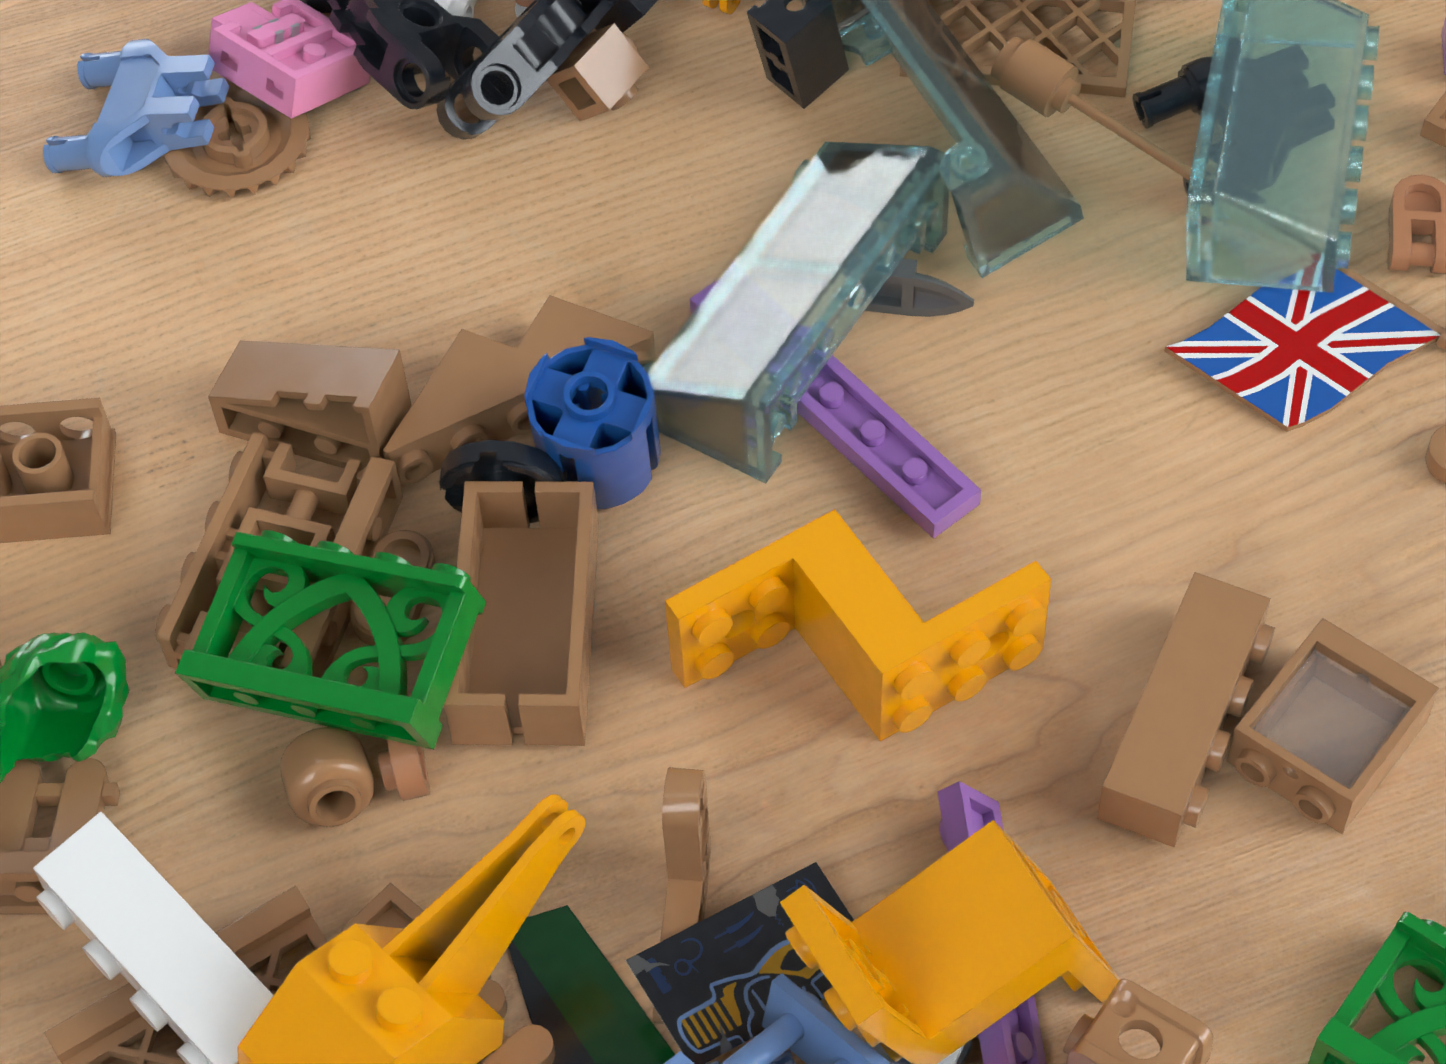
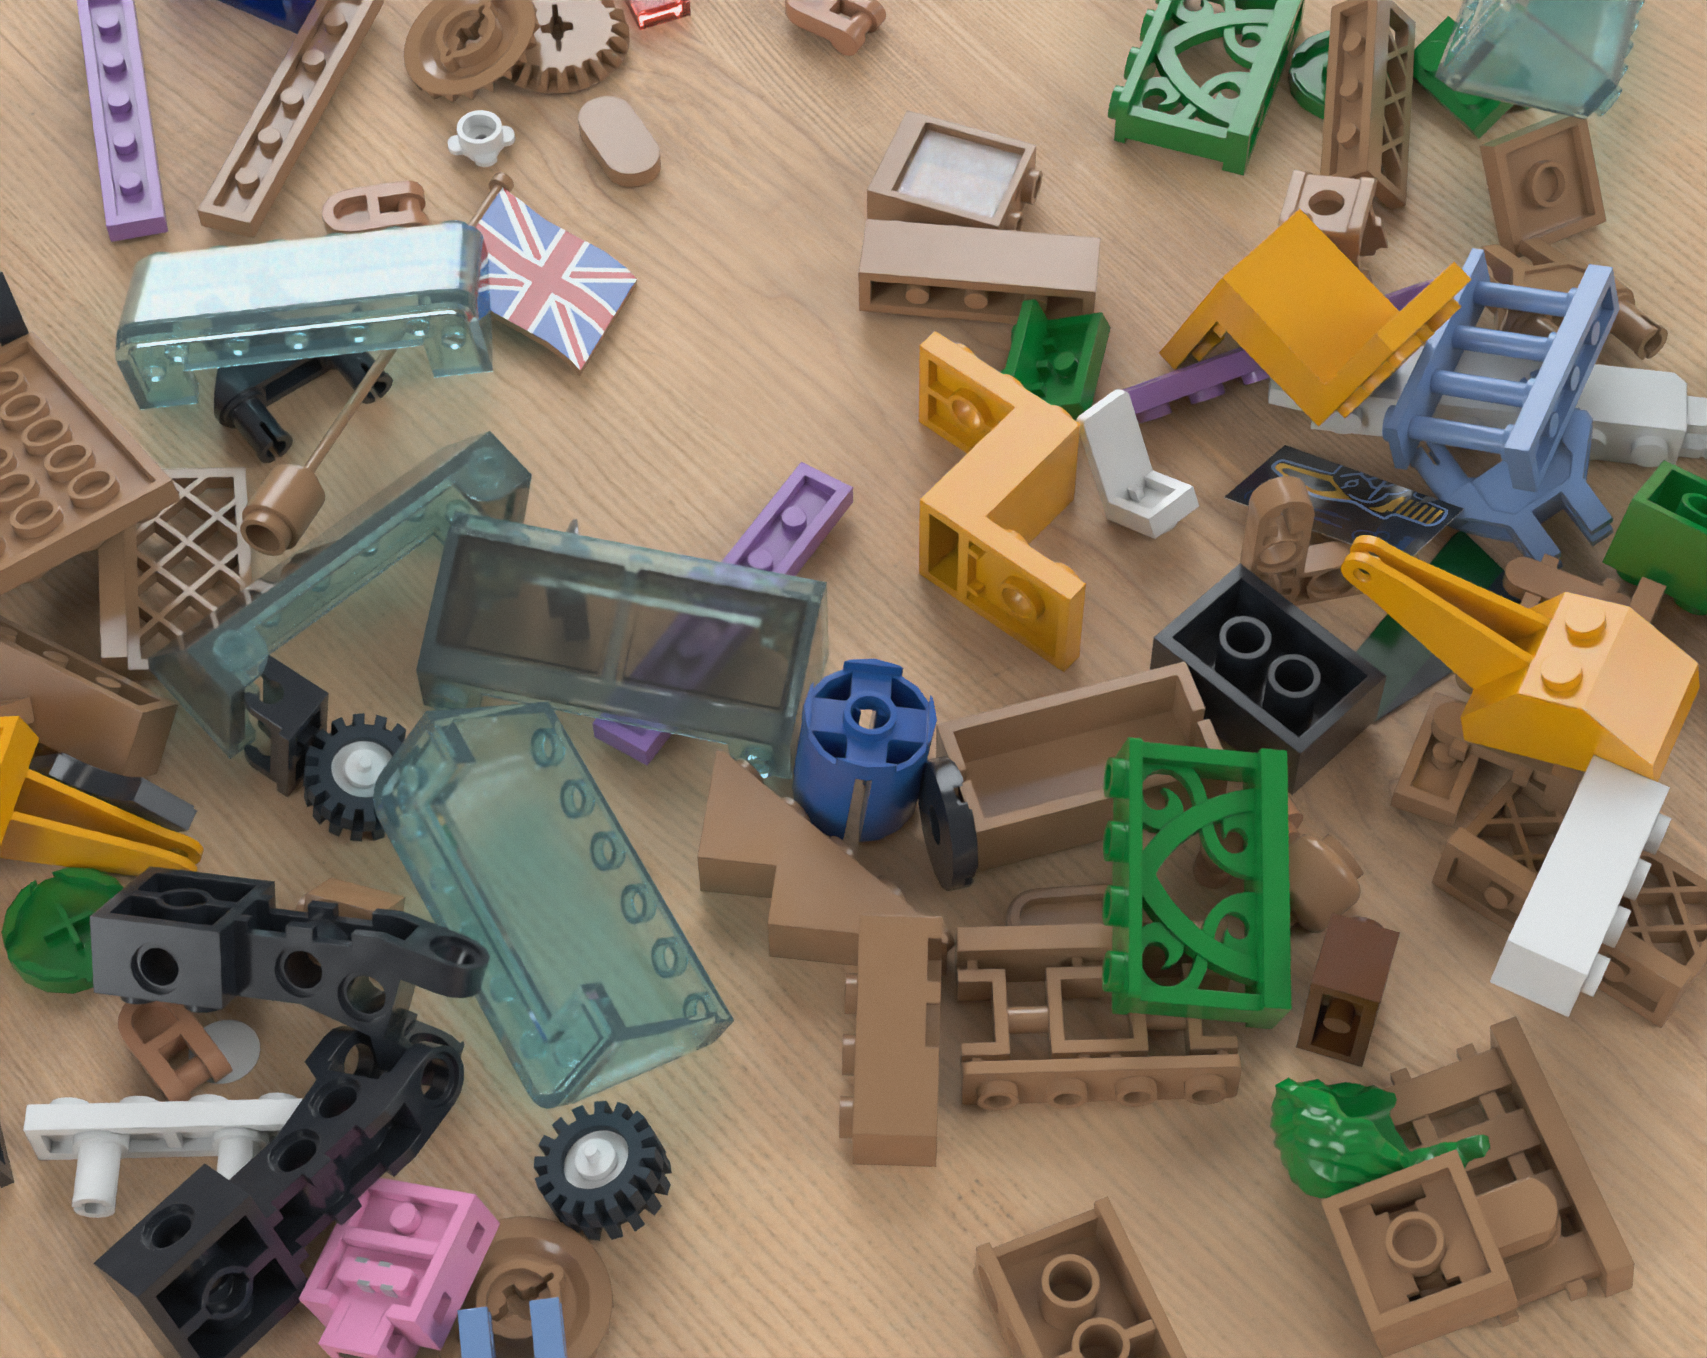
camera: 110 degrees left, 0 degrees up
(186, 743) = (1347, 988): none -> reddish brown brick
(307, 192) = (602, 1170): none -> black wheel
(552, 192) = (534, 866): none -> clear light blue windscreen
(587, 757) = (1271, 674): none -> black brick
(743, 105) = (344, 771): none -> black wheel
(859, 779) = (1123, 473): none -> white bracket
(1044, 747) = (1058, 356): none -> green bracket

